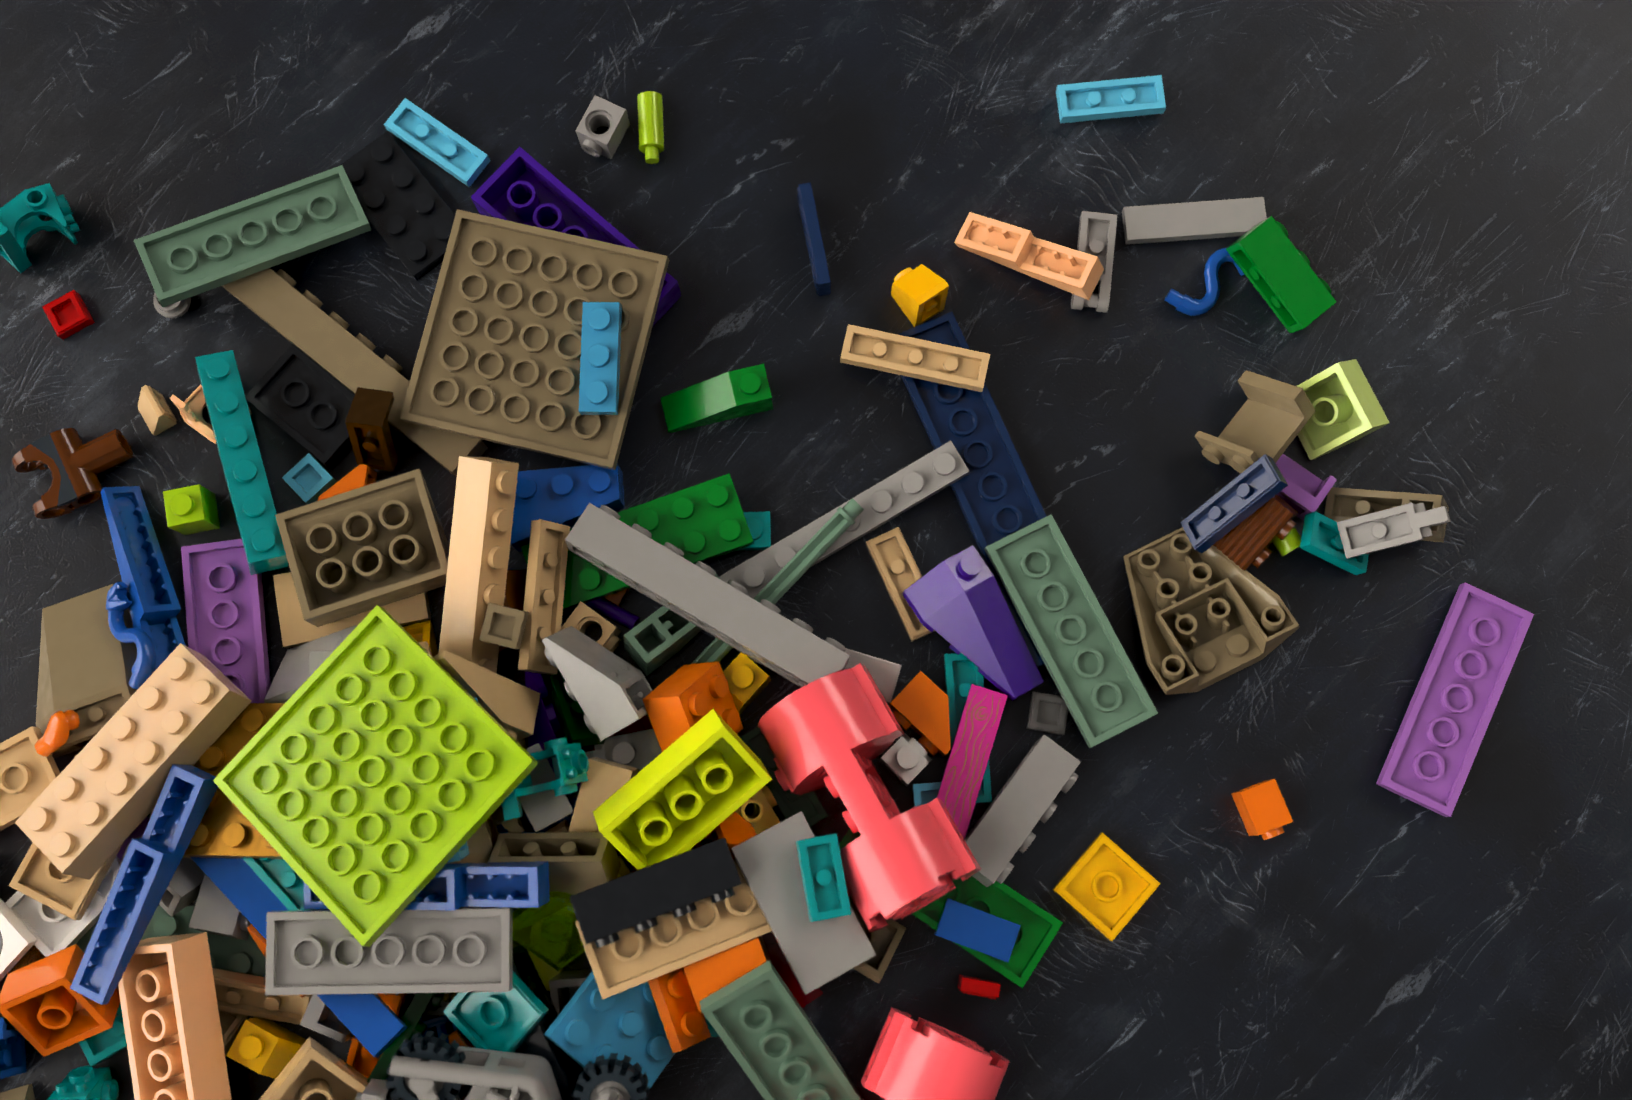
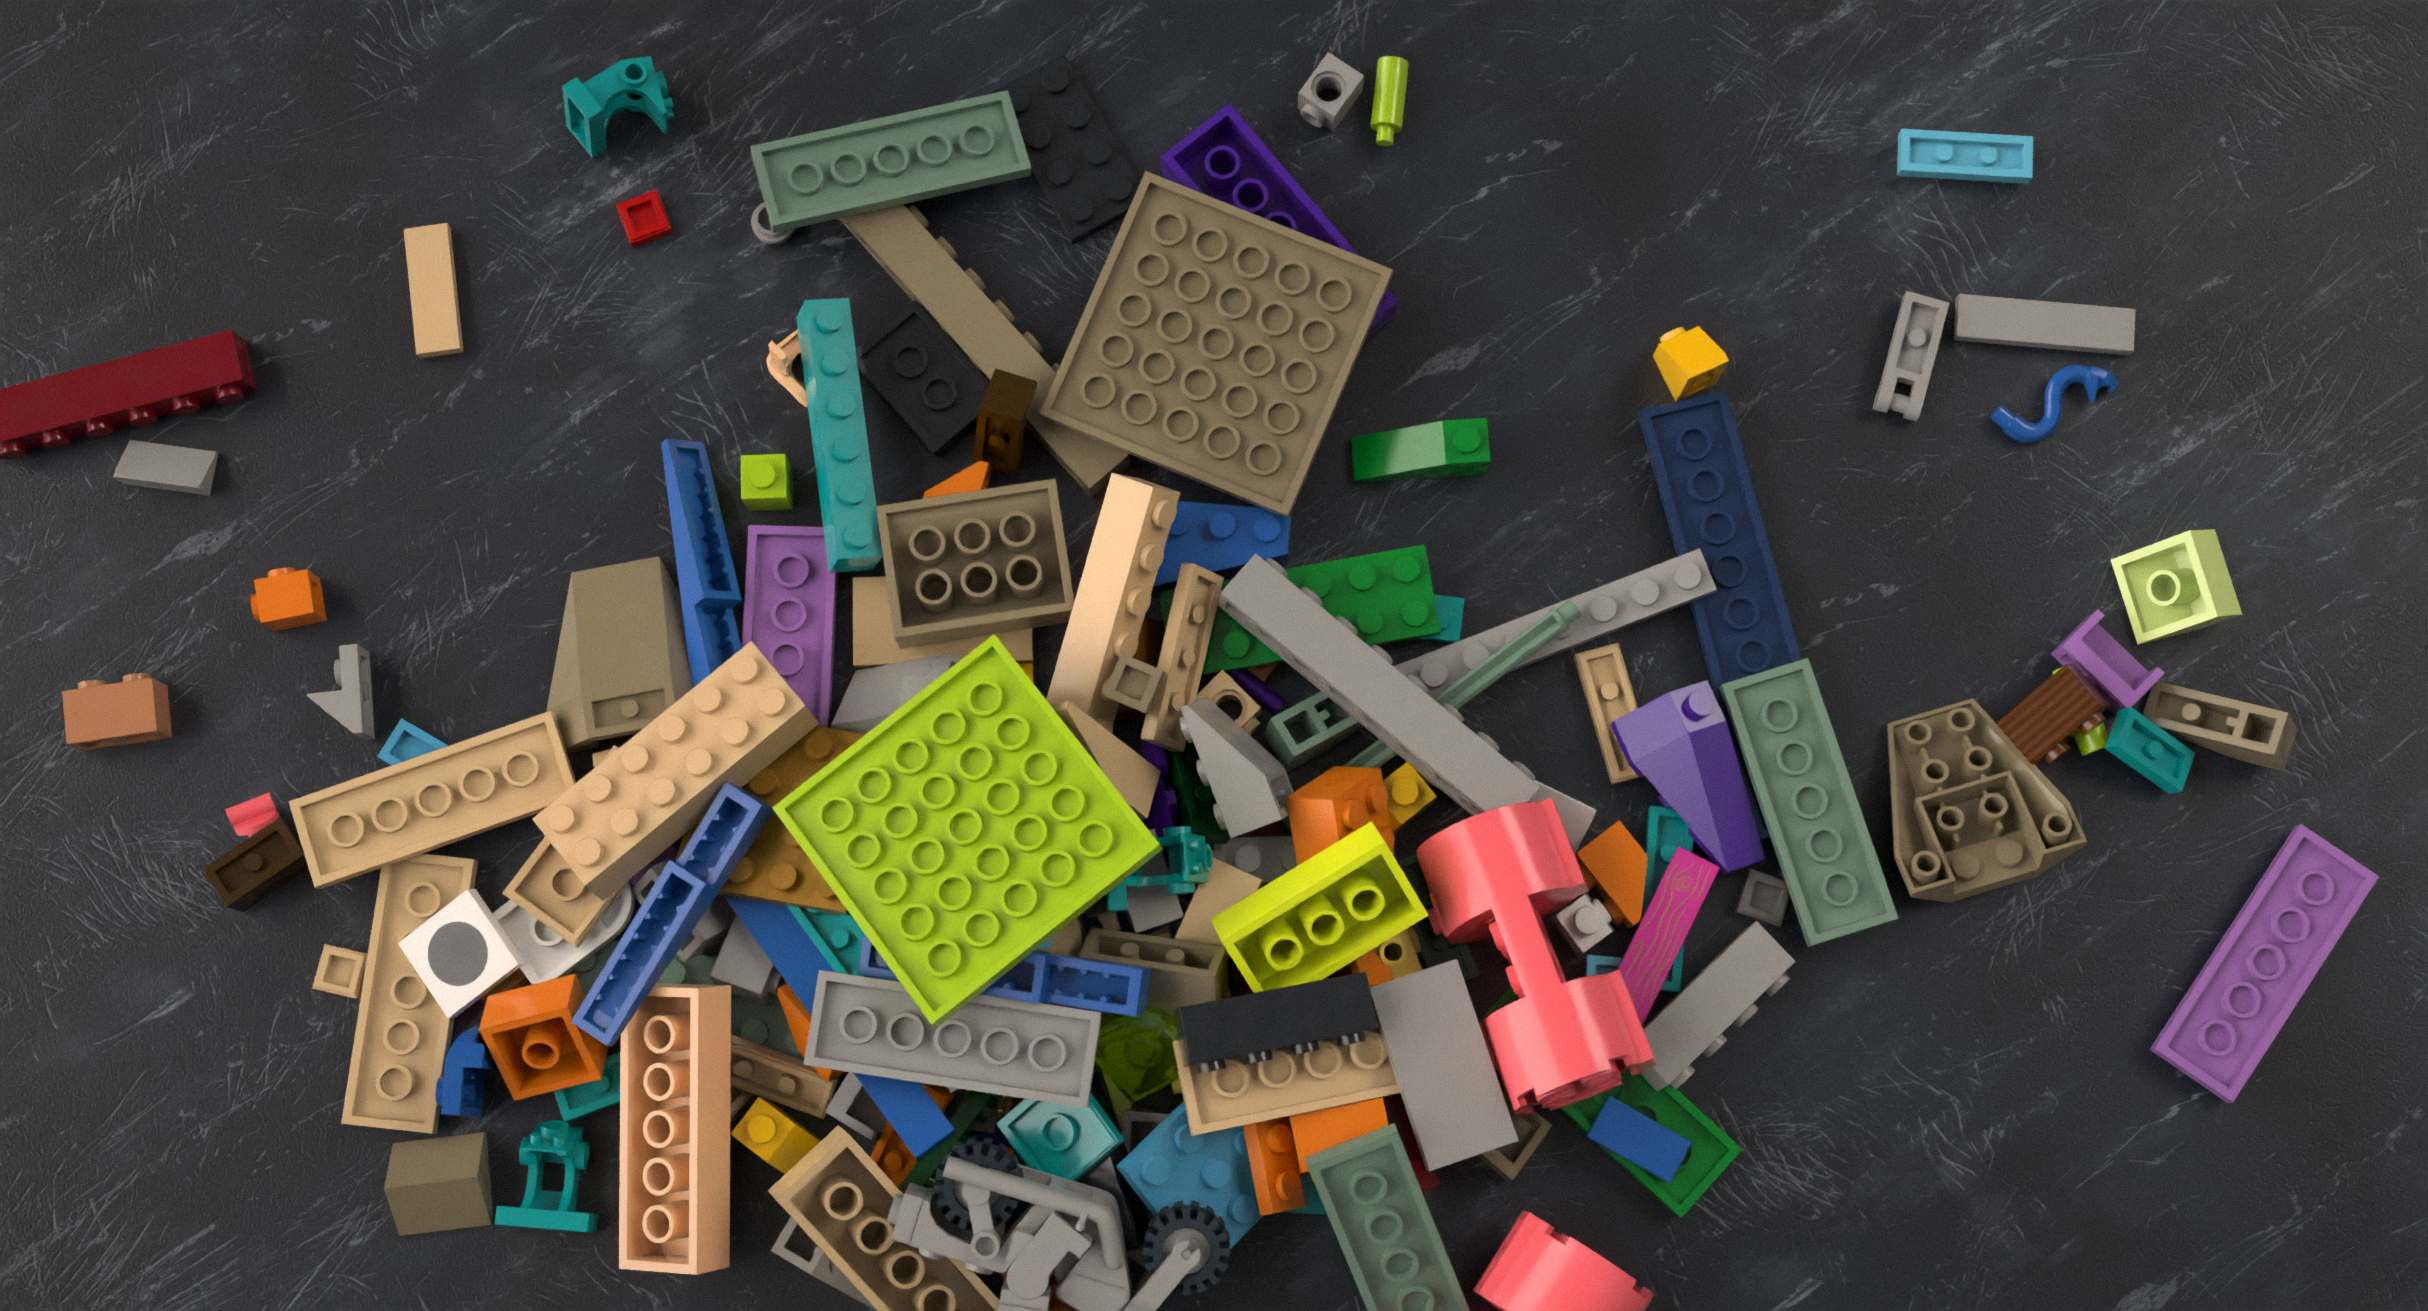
camera: 10 degrees right, 0 degrees up
(57, 732) = (584, 722): orange arm -> none
(72, 468) = (631, 408): reddish brown connector -> none
(146, 657) = (667, 582): blue animal -> none
(155, 410) = (735, 354): tan slope -> none
(309, 479) = (912, 468): medium azure plate -> none
(437, 142) = (1123, 78): medium azure plate -> none
(600, 358) = (1293, 381): dark azure plate -> none
(813, 239) = (1569, 273): dark blue tile -> none
(823, 877) = (1472, 1038): teal plate -> none
(915, 358) = (1672, 440): tan plate -> none
(978, 986) = (1628, 1207): red tile -> none
(1032, 256) = (1830, 334): light nougat slope -> none
(1106, 886) = (1801, 1116): yellow tile -> none
(1234, 503) = (2032, 681): dark blue tile -> none
(1261, 426) = (2082, 594): dark tan panel -> none
(1262, 809) = (2006, 1055): orange brick -> none
(1281, 274) = (2140, 410): green brick -> none
(1389, 528) = (2217, 742): light grey hinge -> none

